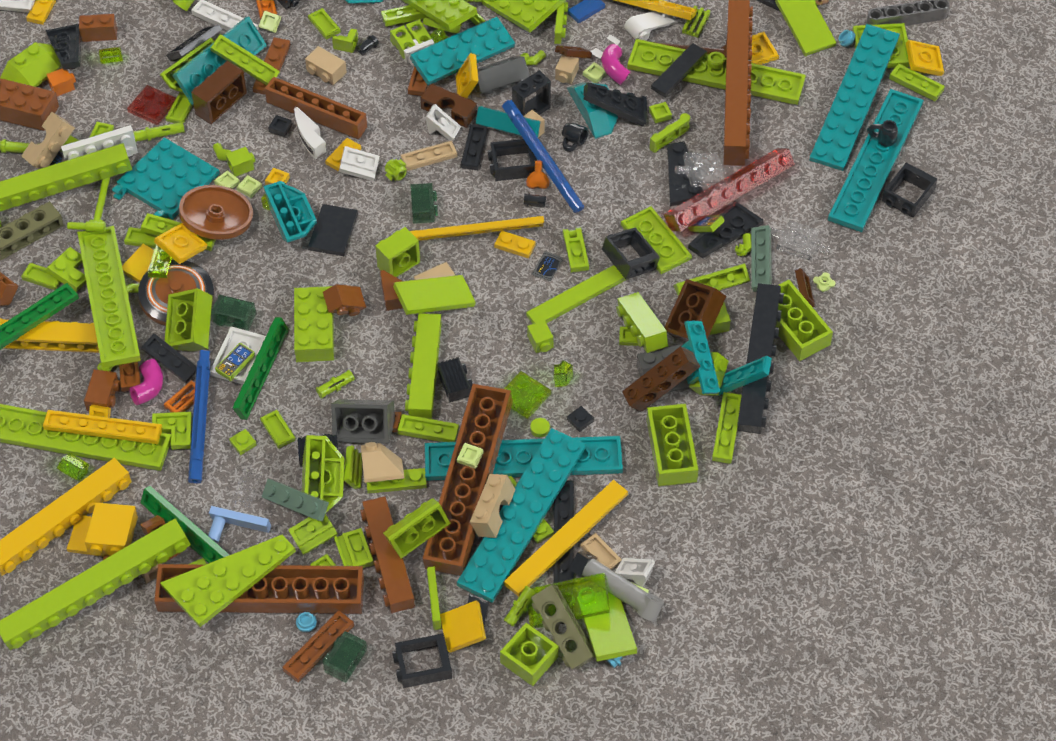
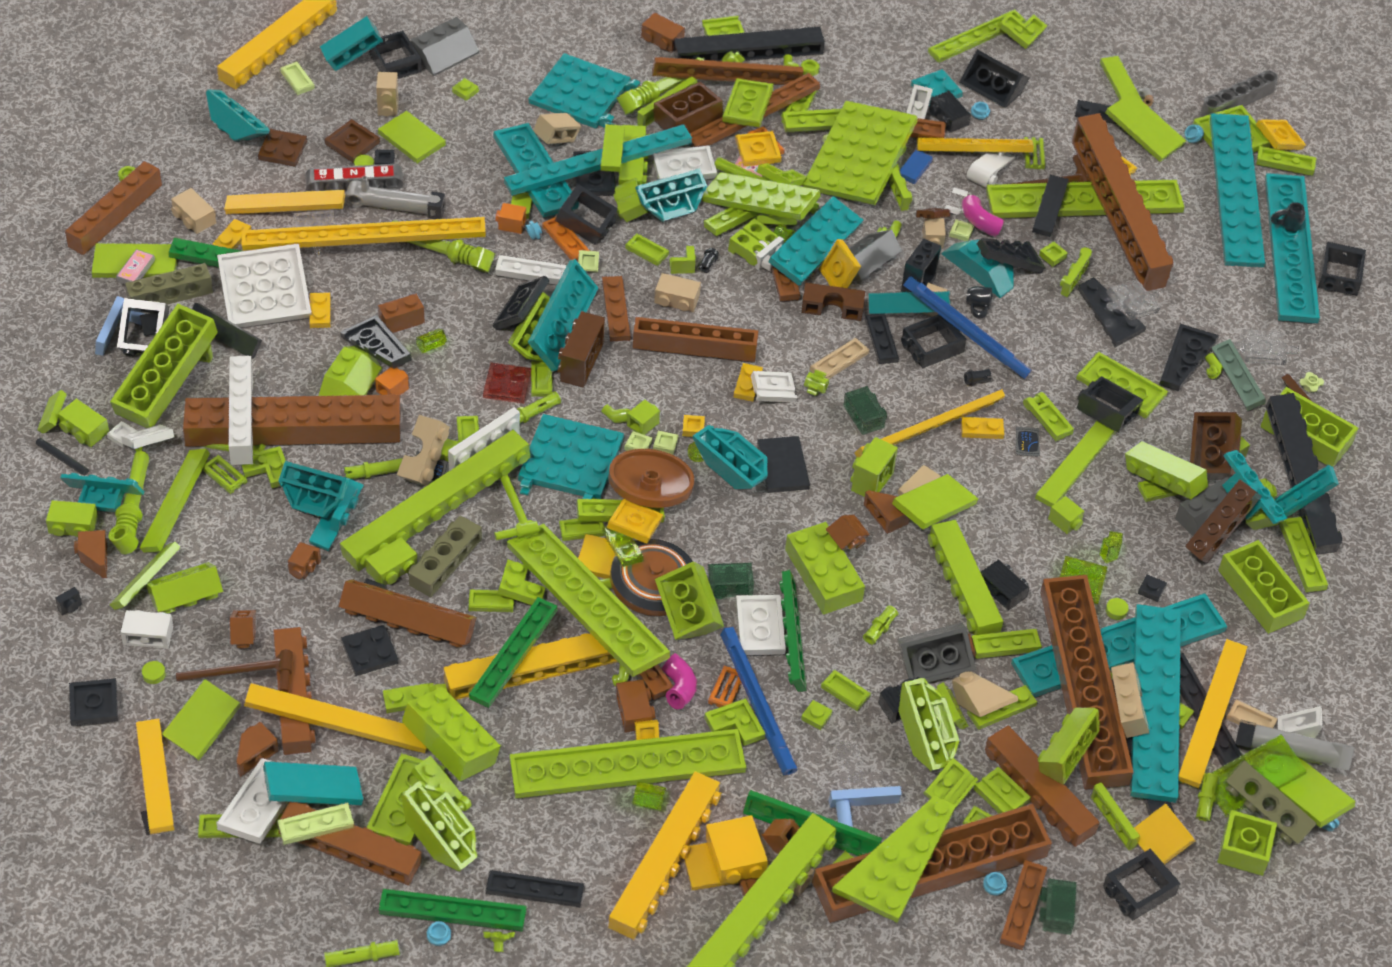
camera: 25 degrees left, 5 degrees down
(102, 427) = (660, 742): yellow tile -> none
(169, 358) = (691, 648): black plate -> none
(235, 361) = (765, 631): tile -> none
(244, 60) = (581, 301): lime plate -> none
(280, 125) = (664, 369): black plate -> none
(295, 499) = (917, 757): sand green plate -> none
(309, 134) = (700, 368): white slope -> none
(440, 121) = (838, 320): white slope -> none
(470, 455) = (1082, 654): yellowish green tile -> none
(538, 178) = (969, 353): orange rock -> none
(708, 224) = (1167, 354): tile -> none
(716, 60) = (1081, 186): lime tile -> none
(721, 279) = (1215, 402): lime slope -> none
(729, 189) = (1169, 314): clear red brick -> none

